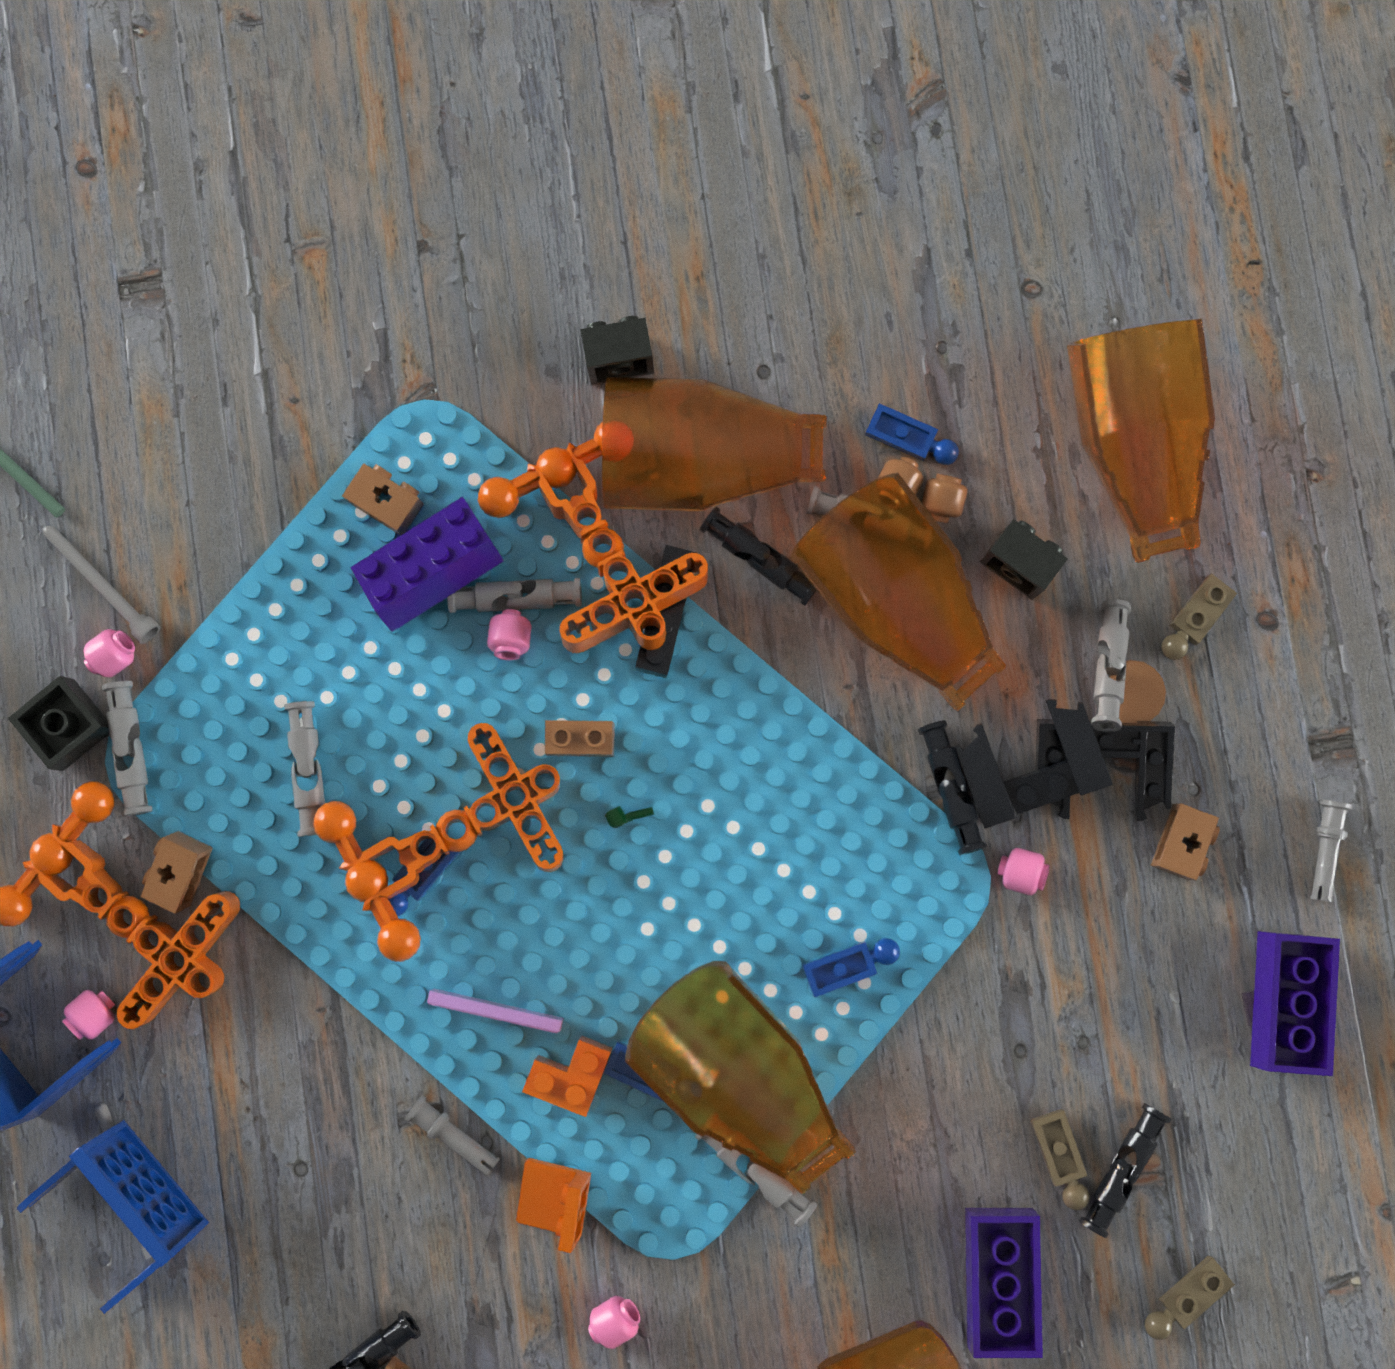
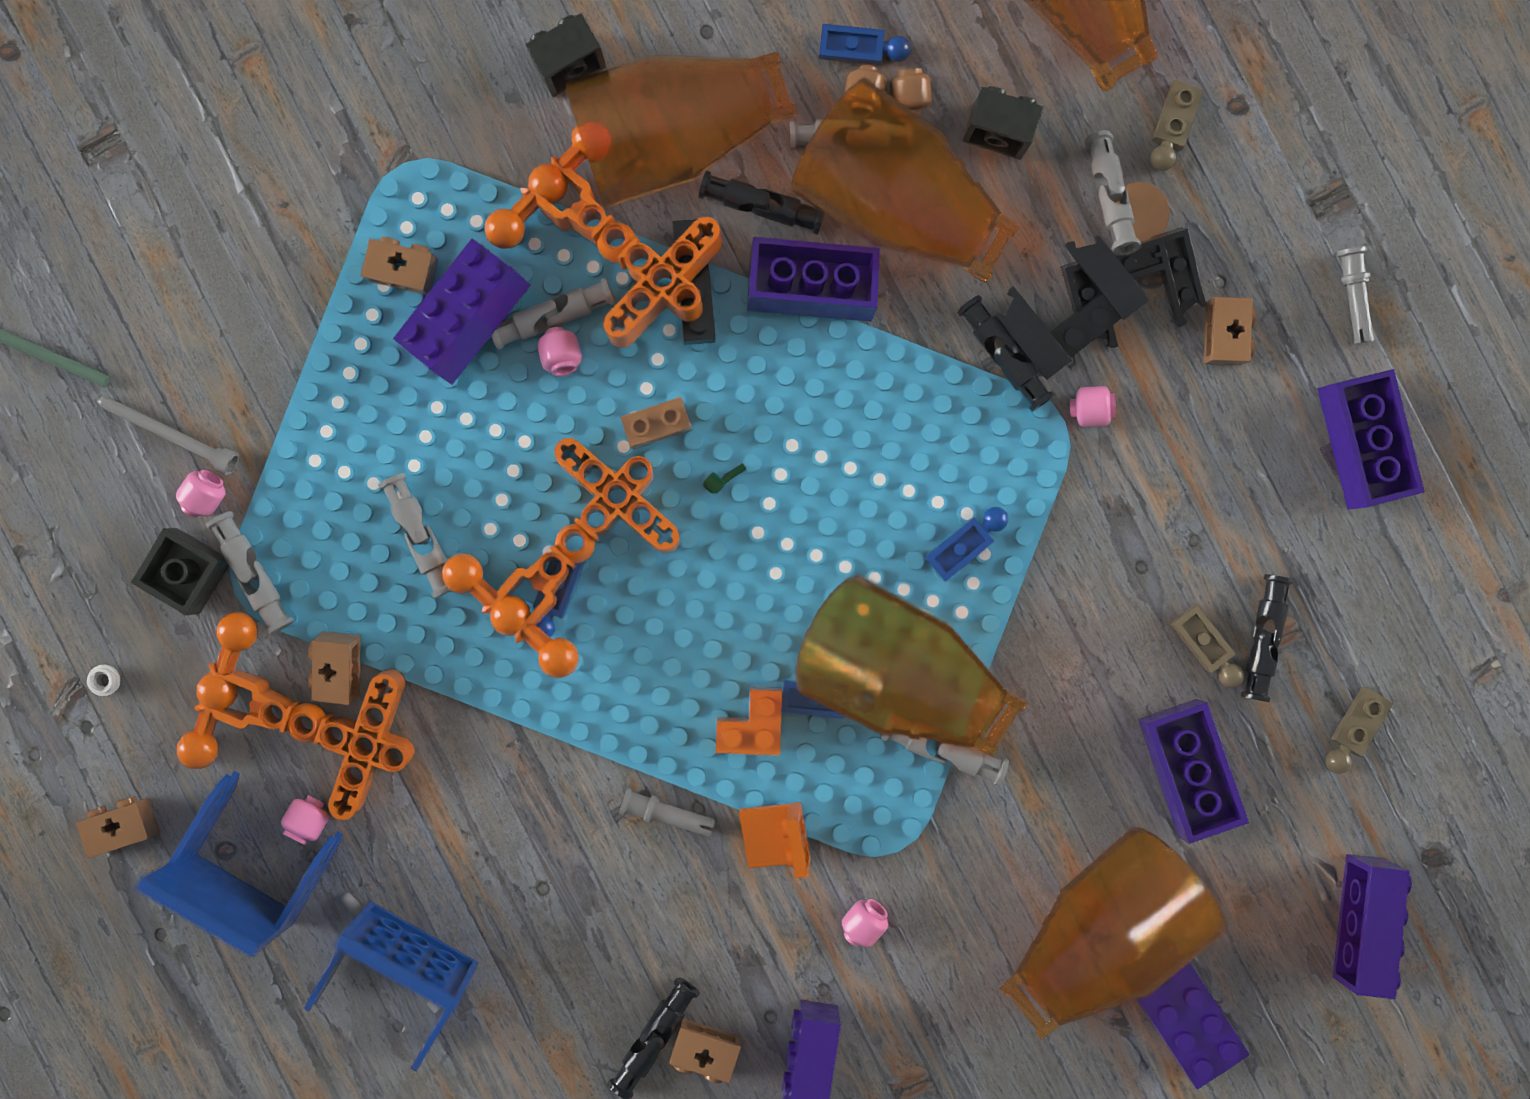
camera: 25 degrees left, 5 degrees up
(495, 1010) = (666, 691): lavender tile -> none
(784, 649) = (813, 279): none -> dark purple brick

